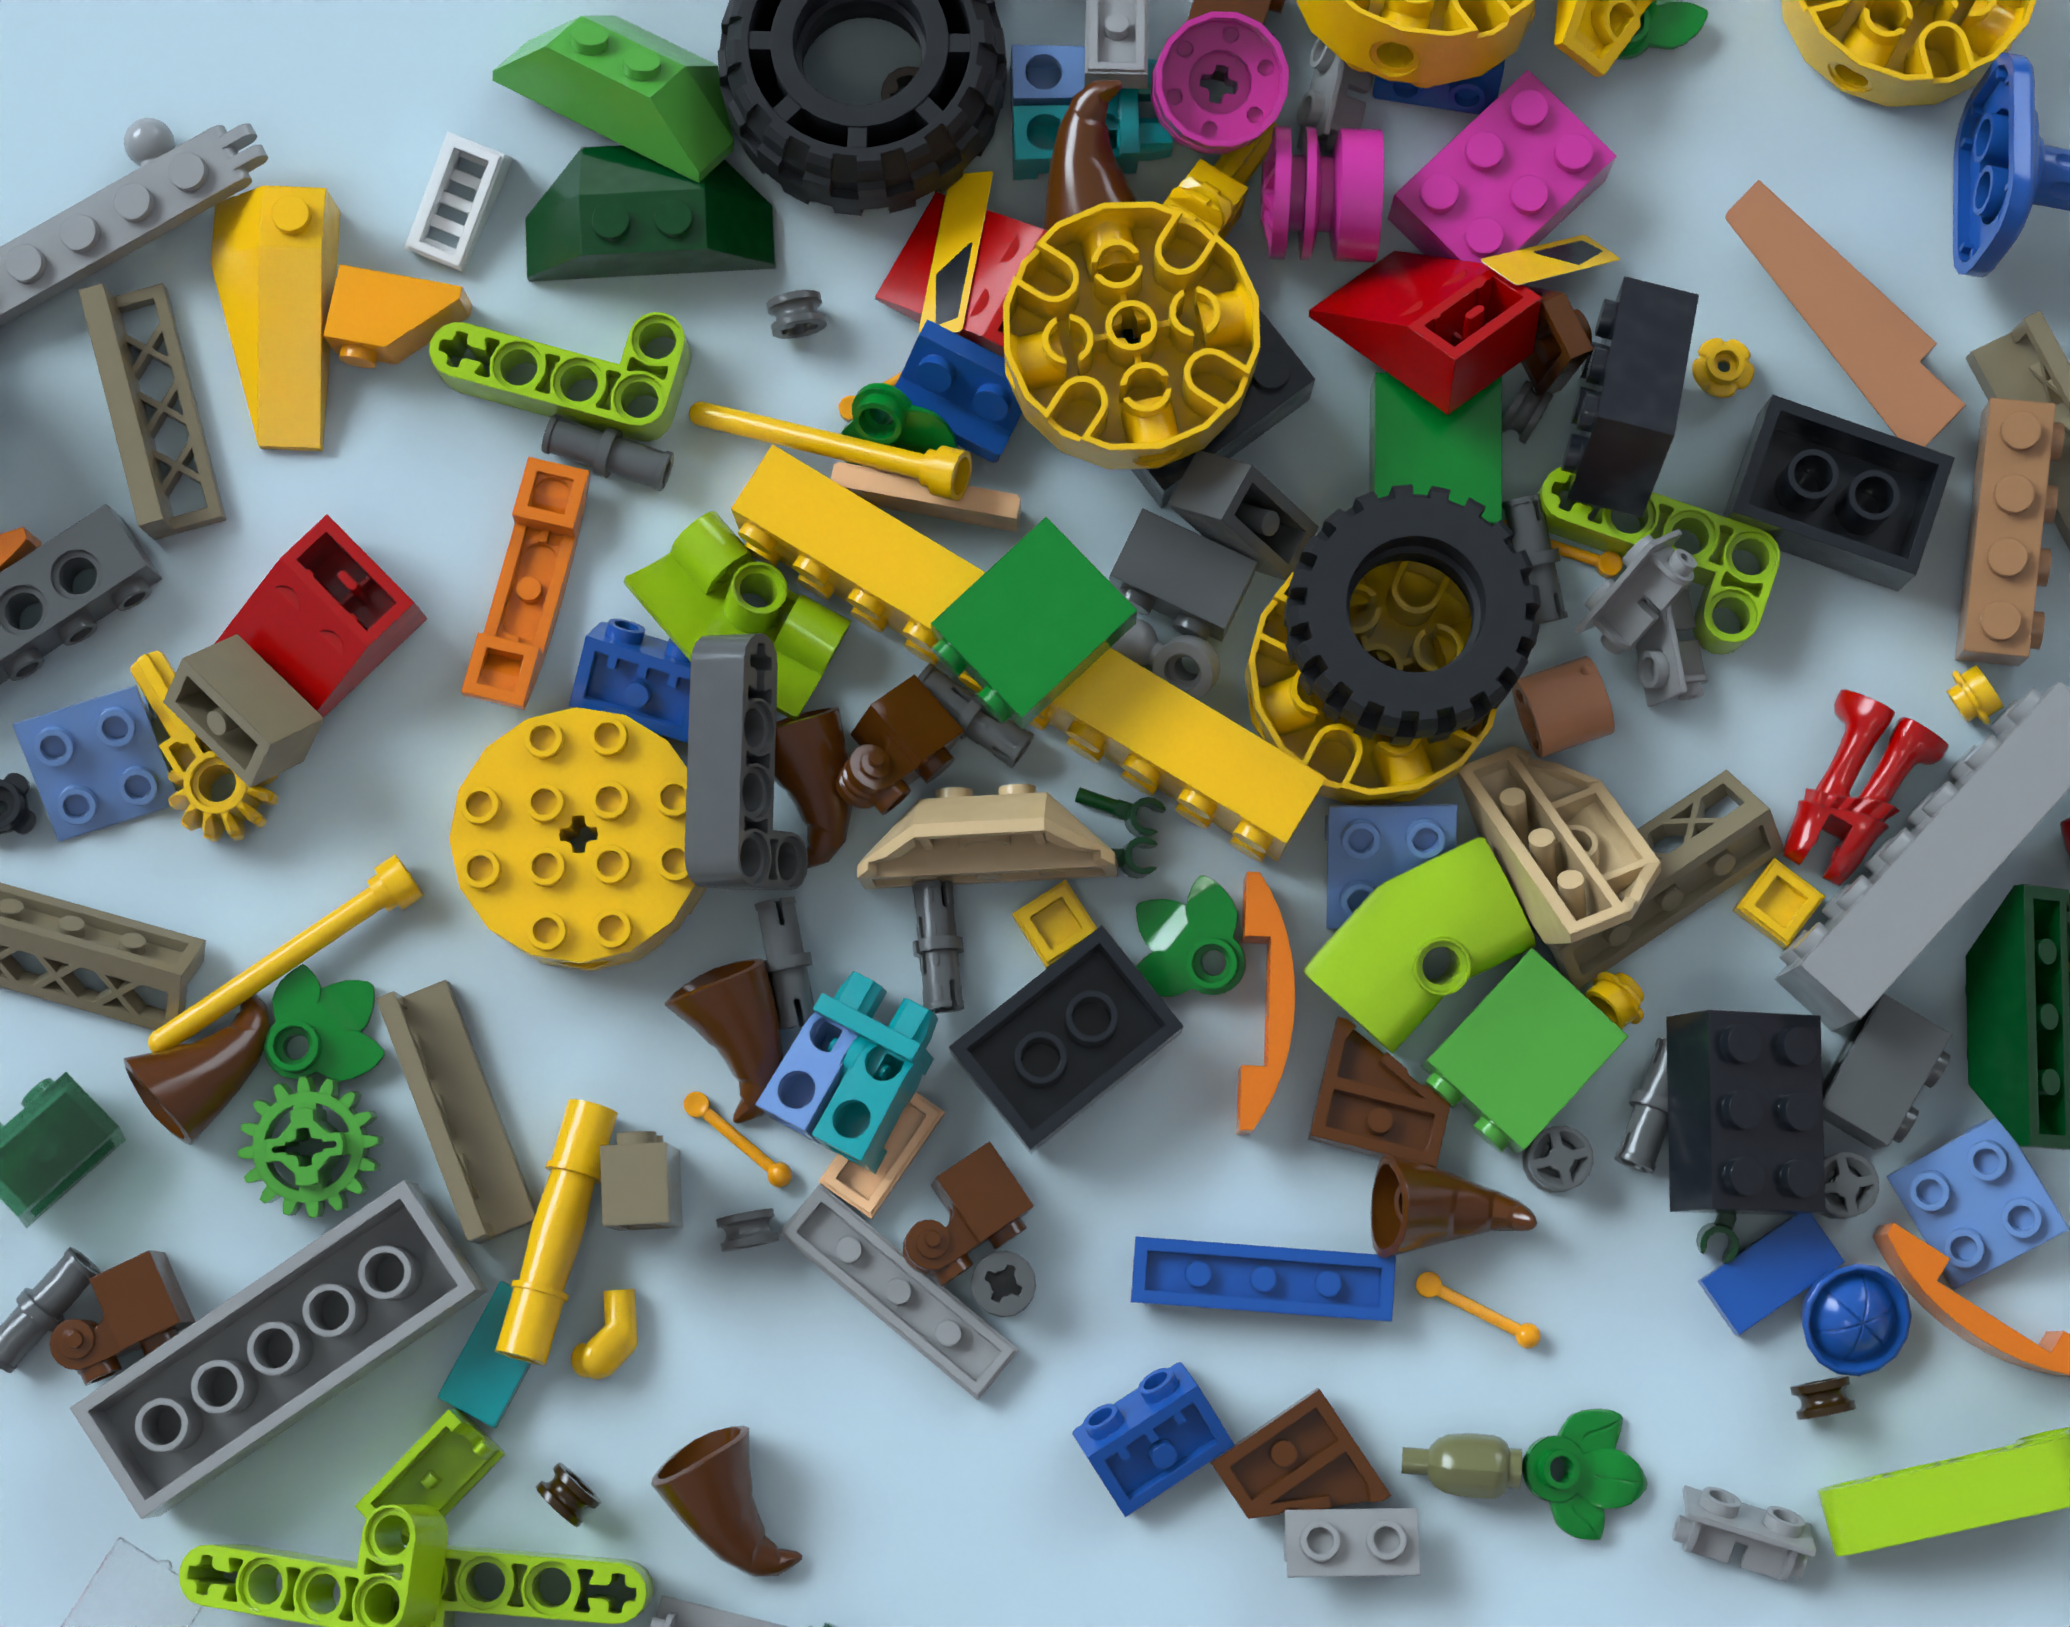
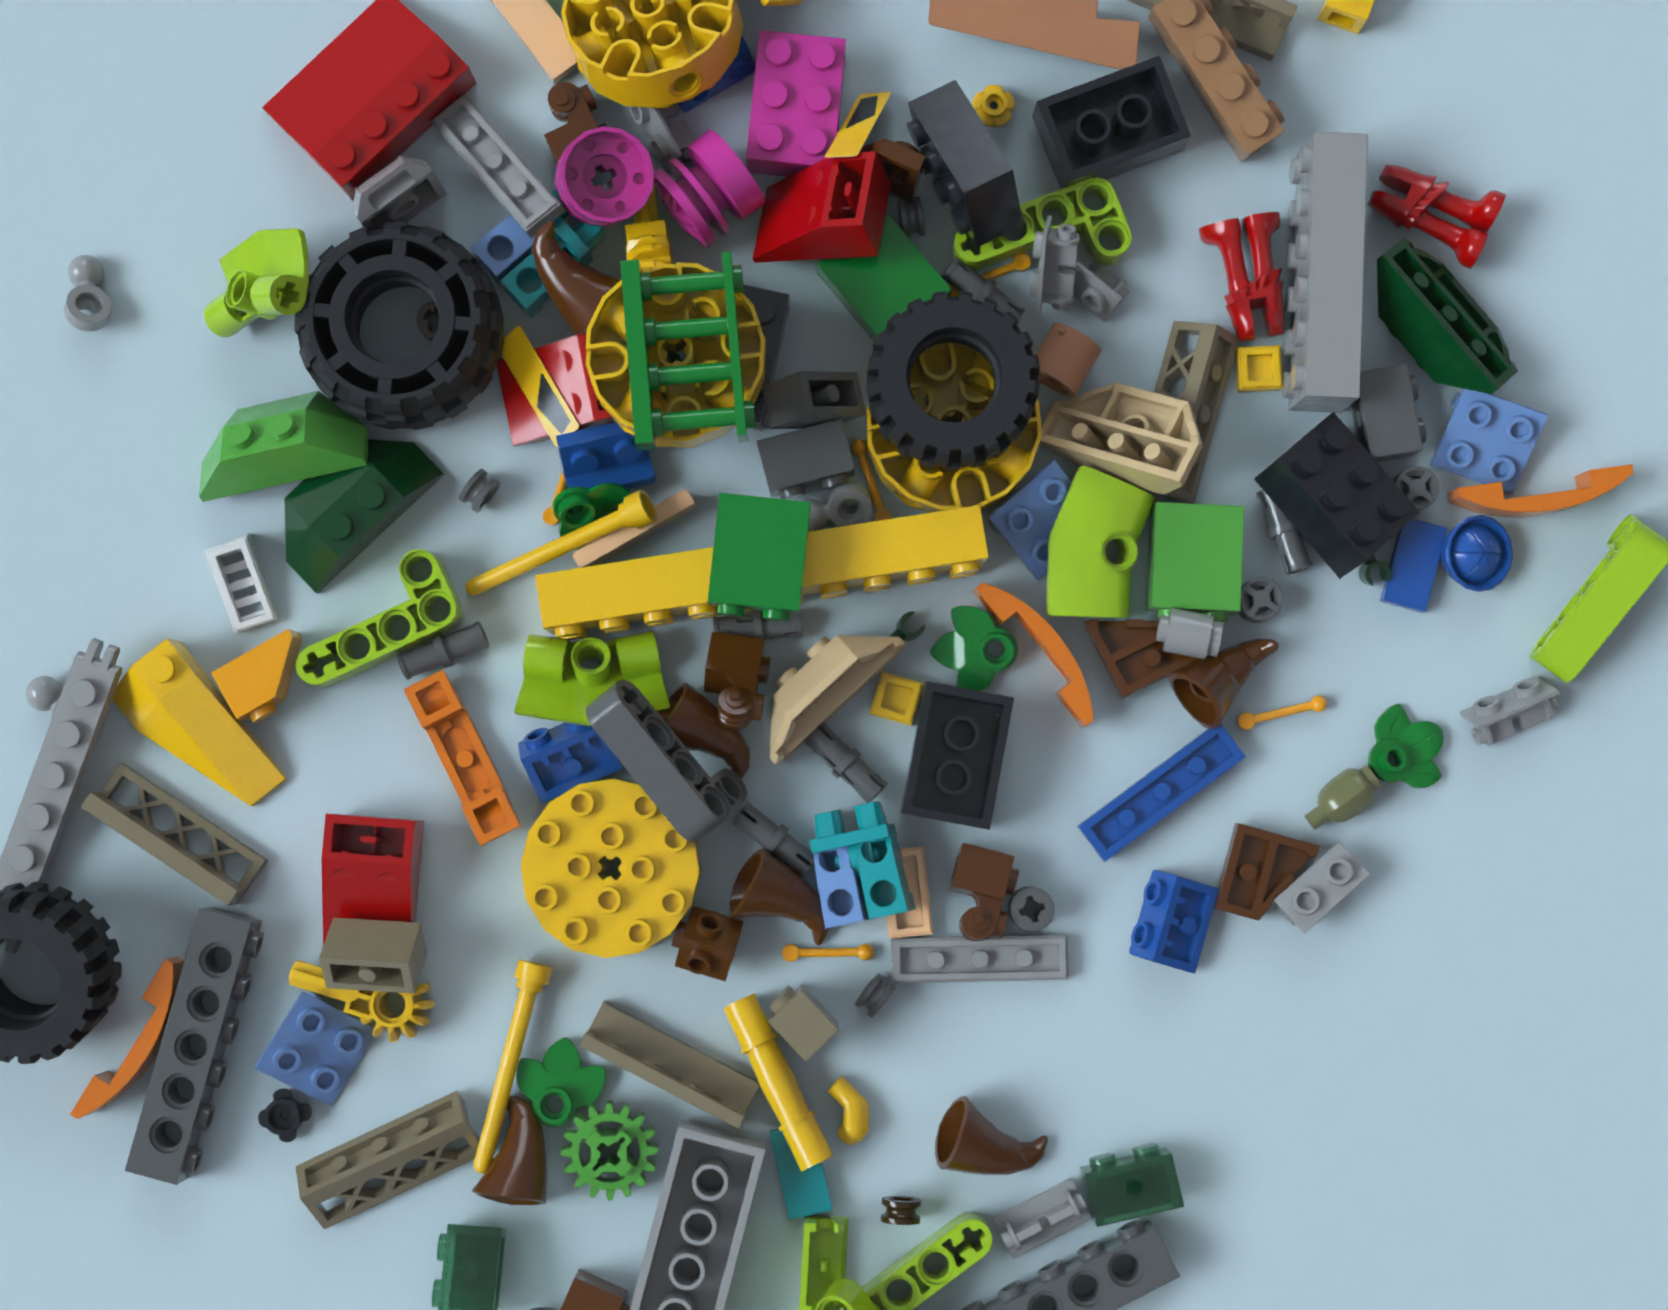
camera: 45 degrees left, 5 degrees up
(613, 1011) = (707, 943): none -> reddish brown brick
(1111, 273) = (645, 332): none -> green fence
(1121, 809) = (878, 609): dark green hand -> none
(1250, 617) = (859, 448): none -> light orange hinge
(1443, 1125) = (1190, 633): none -> light grey brick
(1617, 998) = (1218, 490): yellow plate -> none
(1823, 1397) = (1494, 607): dark brown bush -> none
(1974, 695) = (1268, 173): yellow plate -> none

